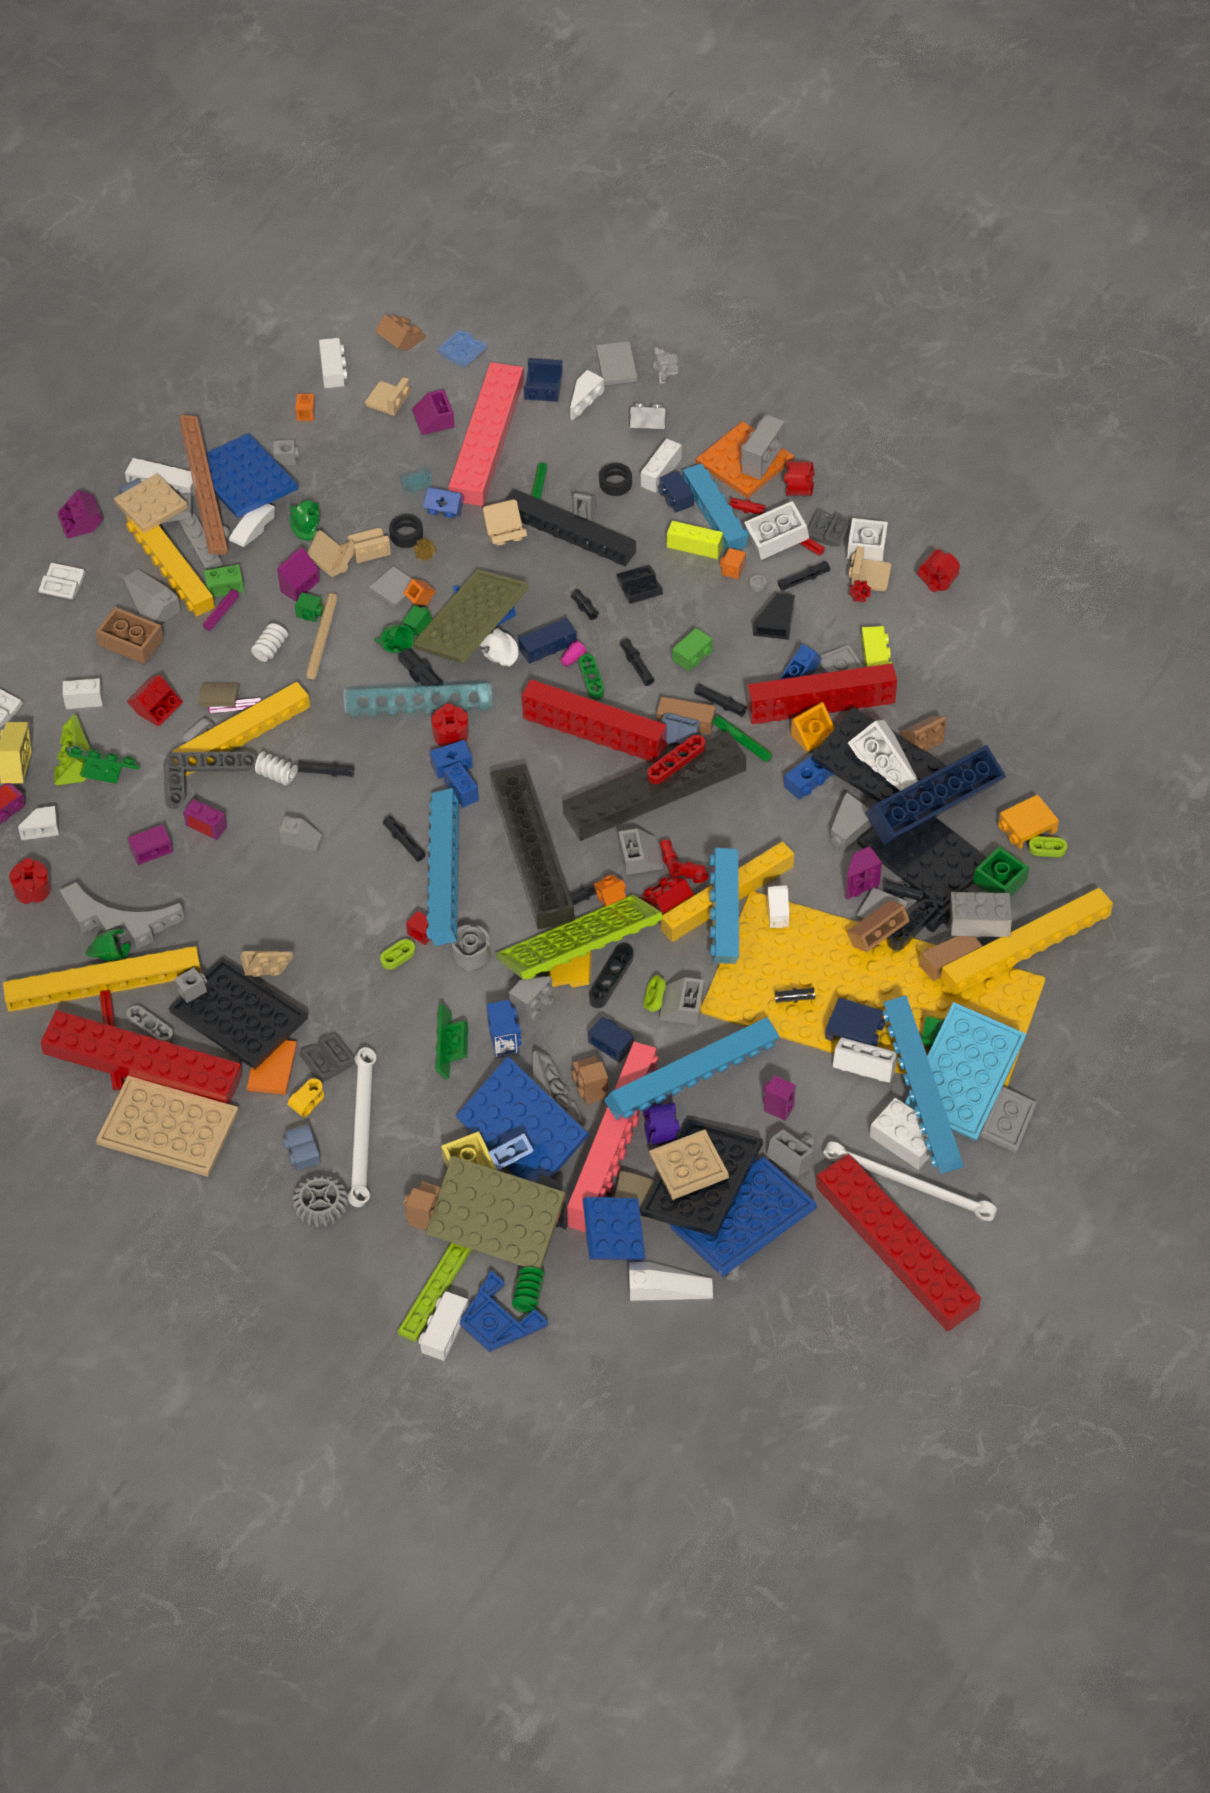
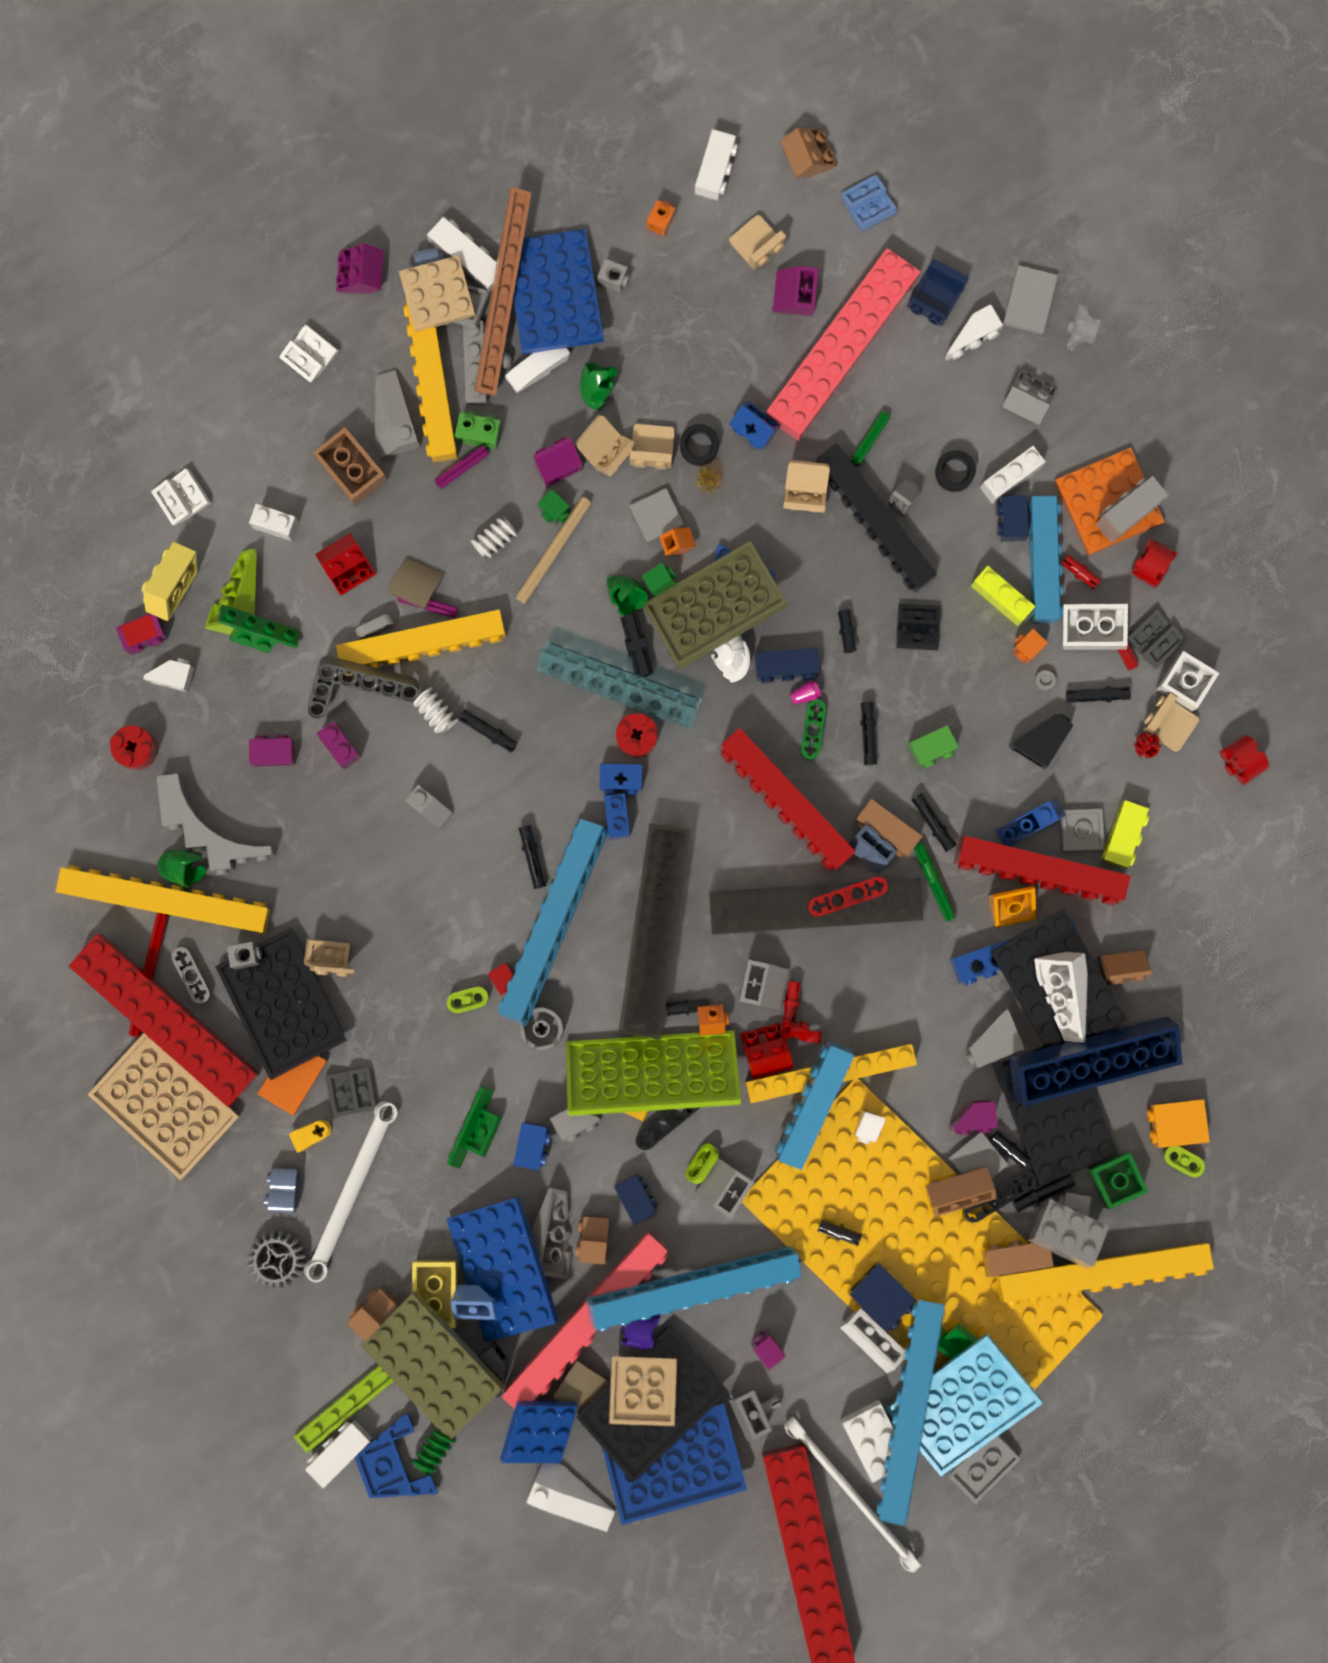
camera: 20 degrees right, 30 degrees up
(416, 480) = (736, 384): clear light blue brick -> none

